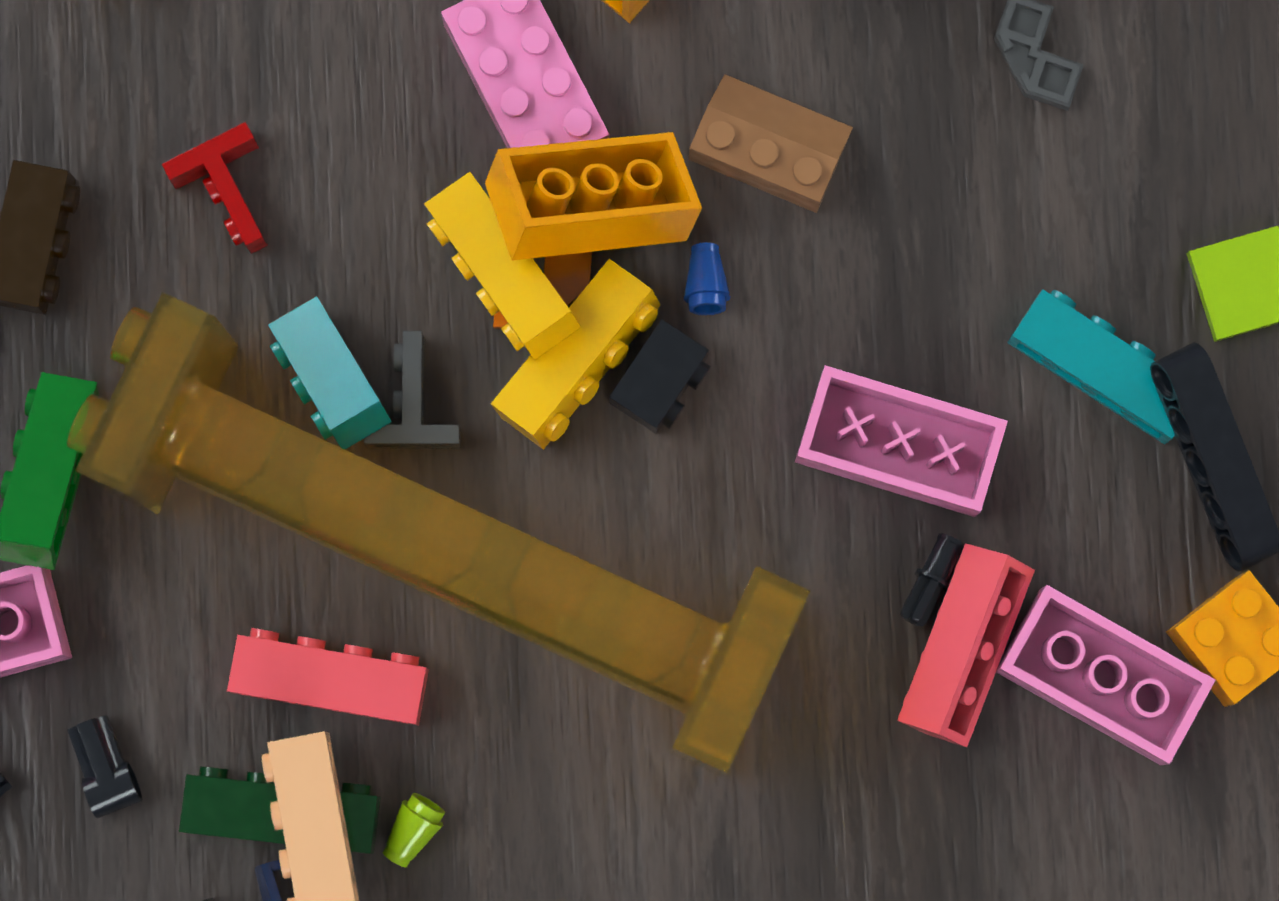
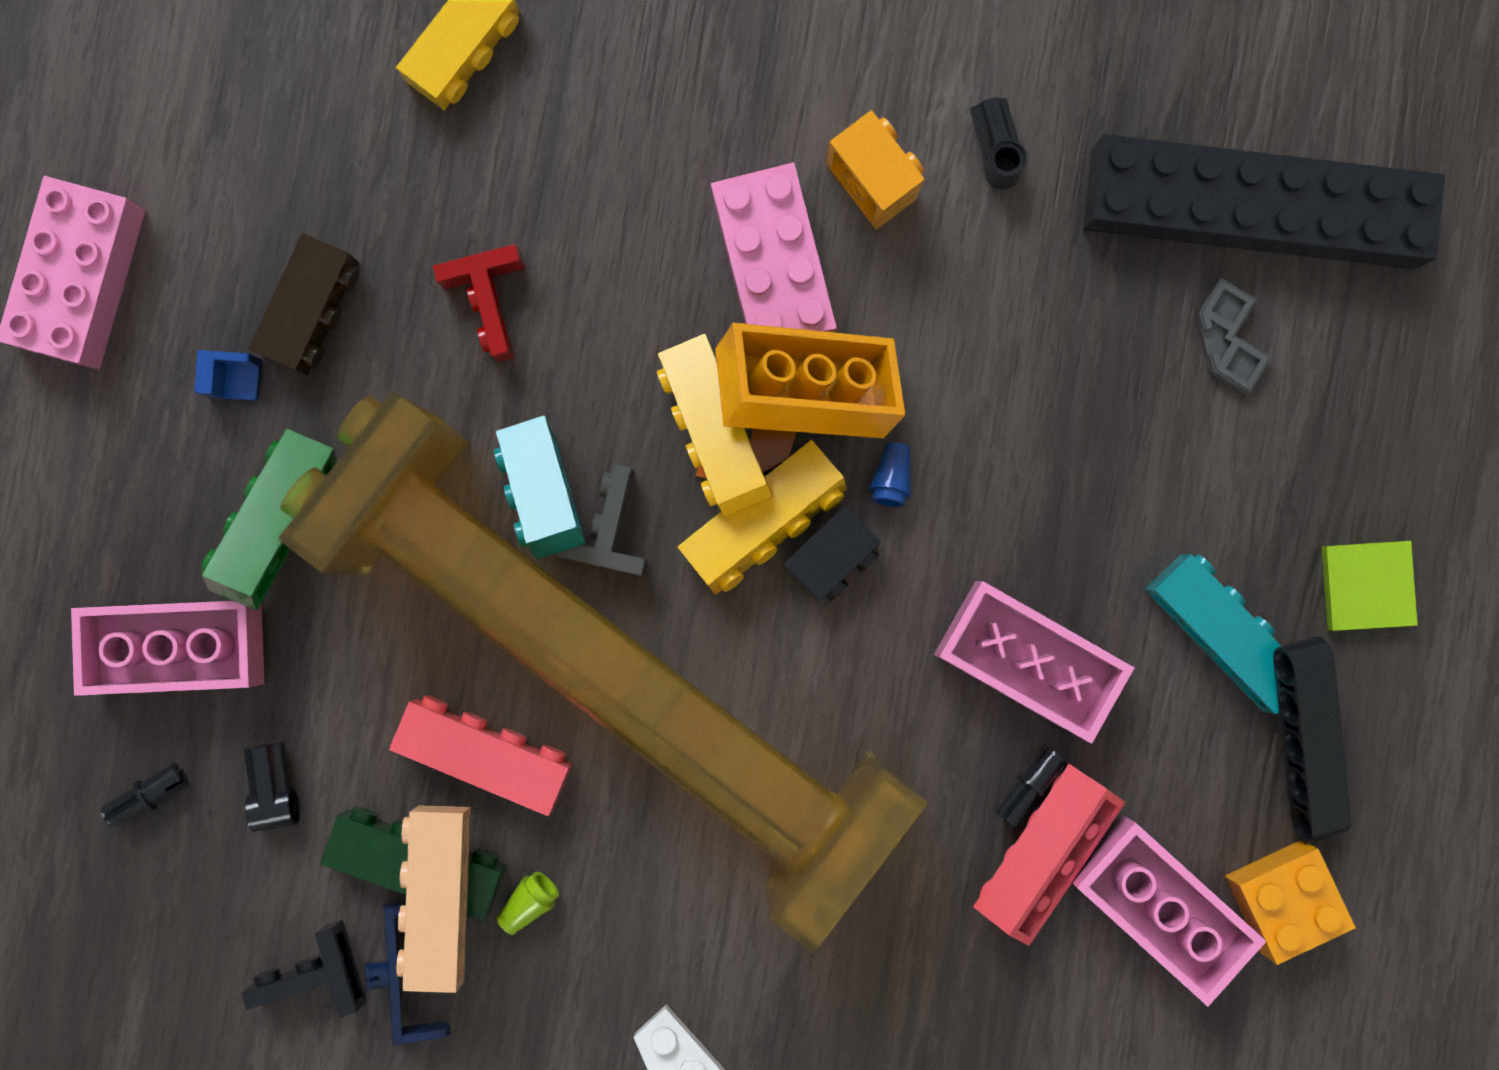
camera: 15 degrees right, 5 degrees up
(769, 143) = (977, 366): medium nougat slope -> none

